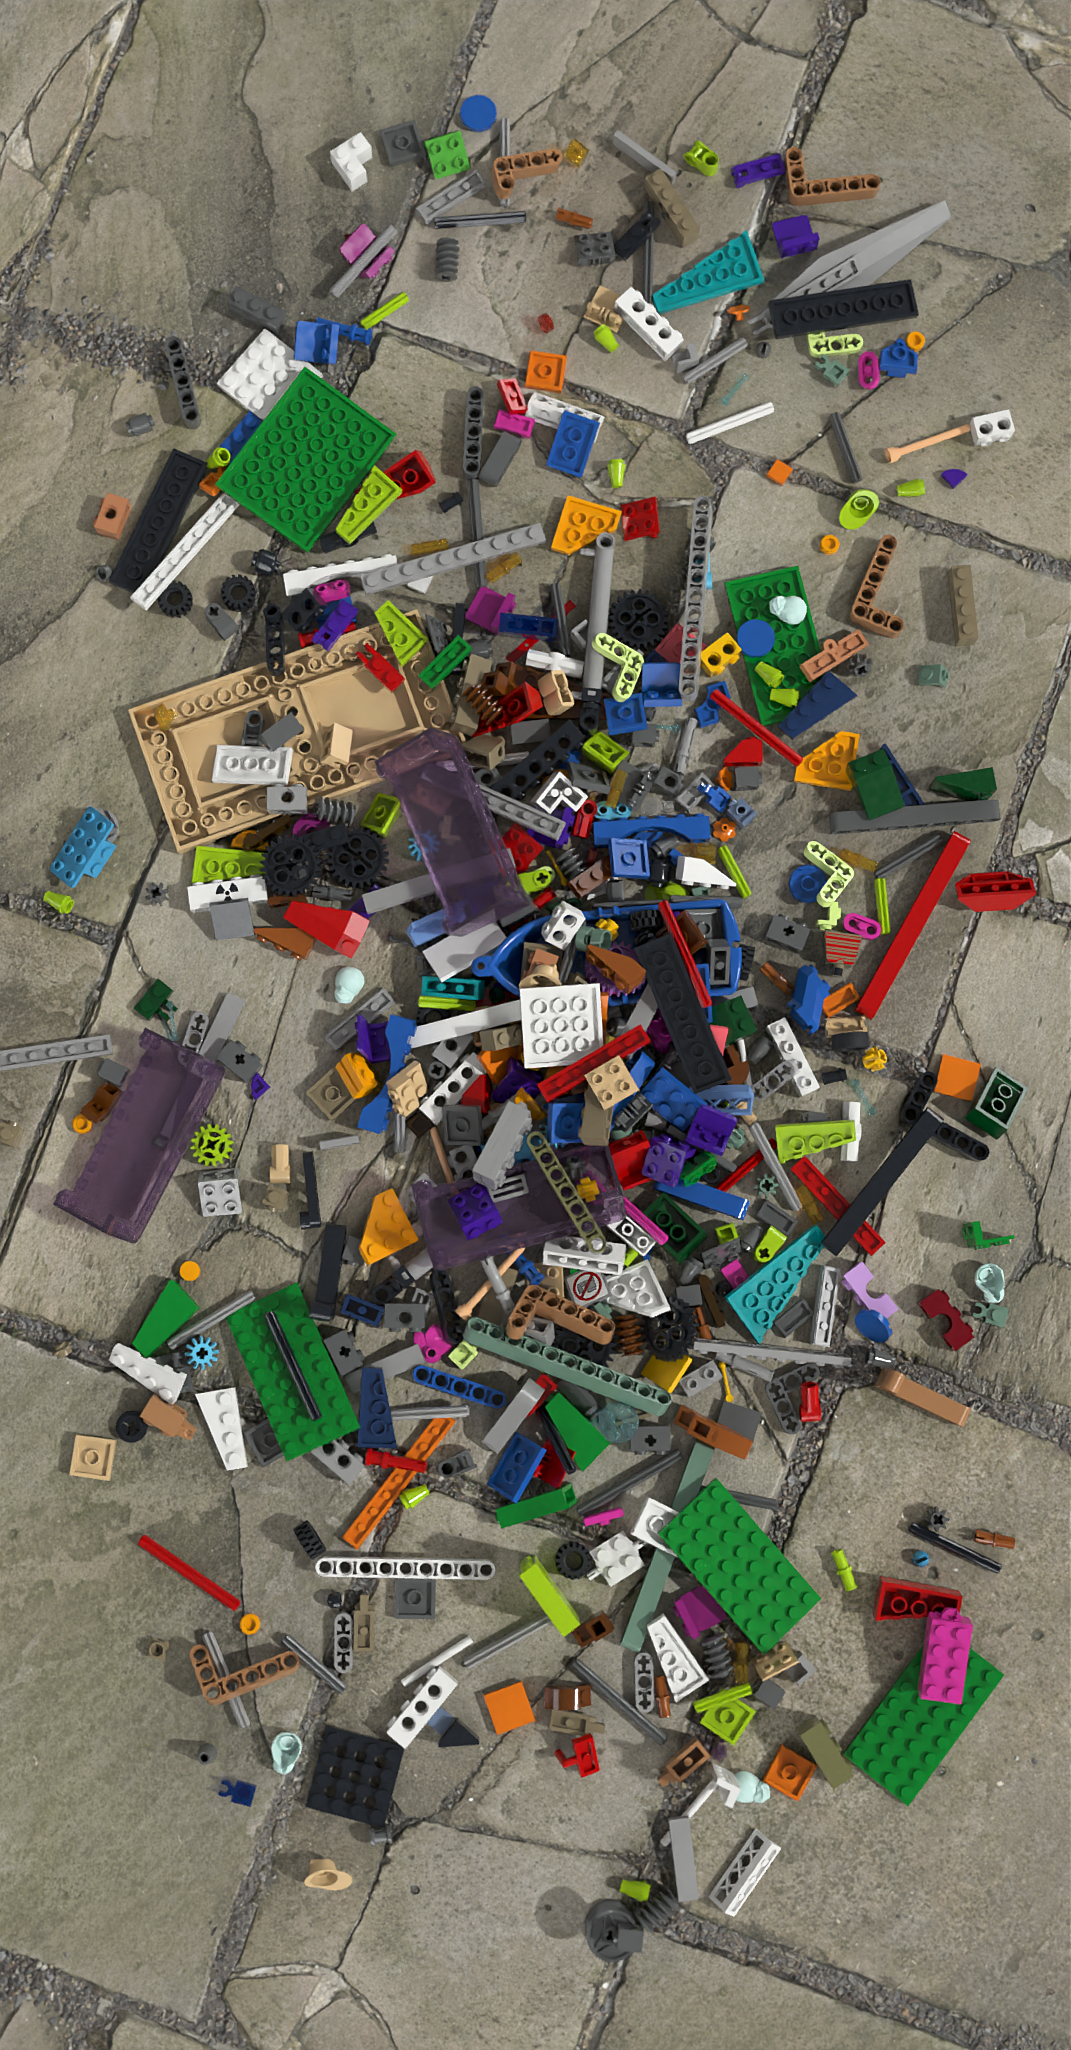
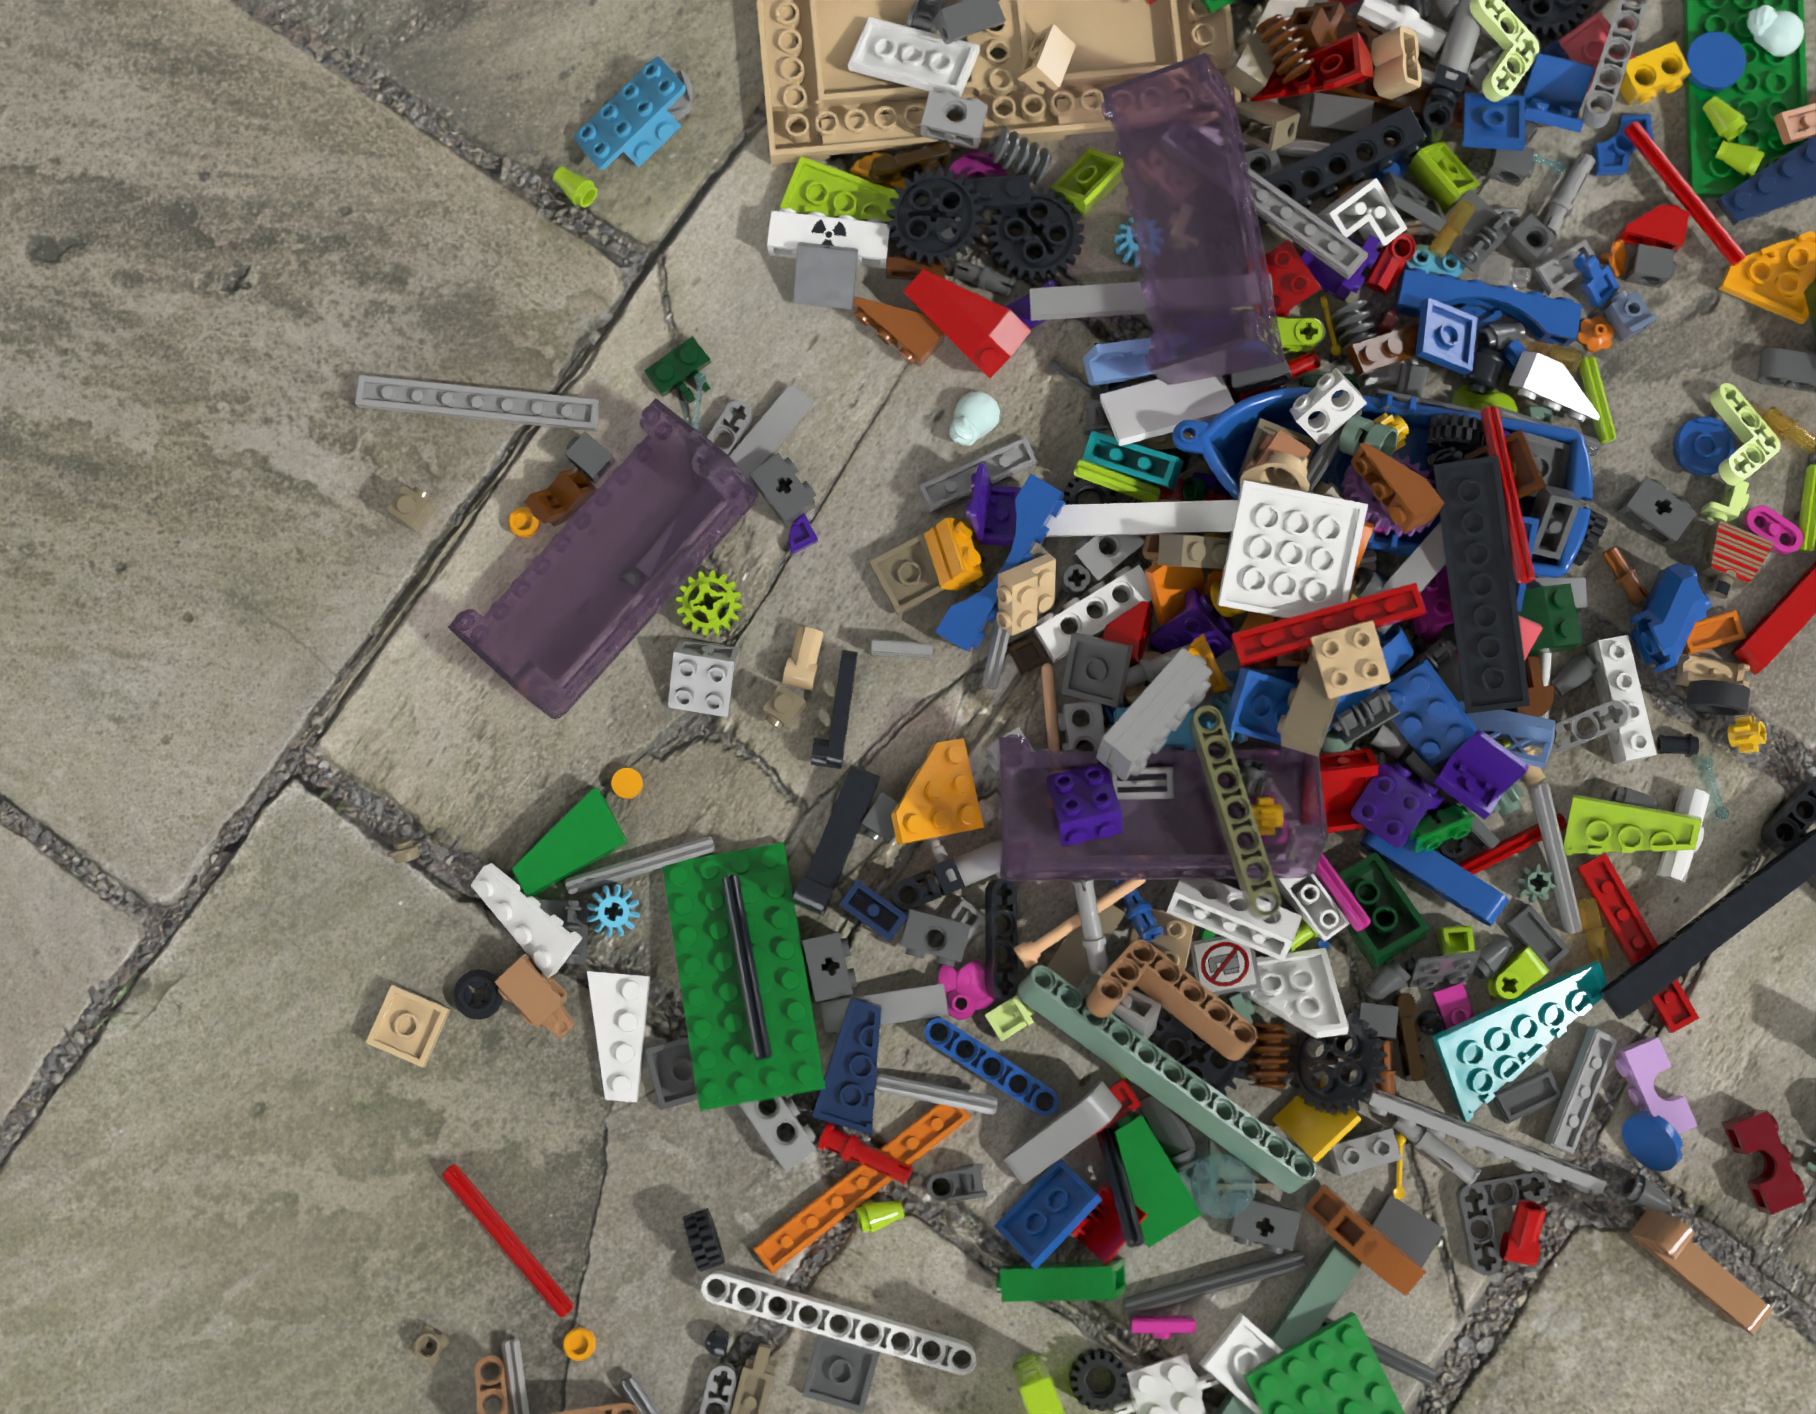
camera: 15 degrees right, 0 degrees up
(158, 899) = (722, 204): dark grey gear -> none

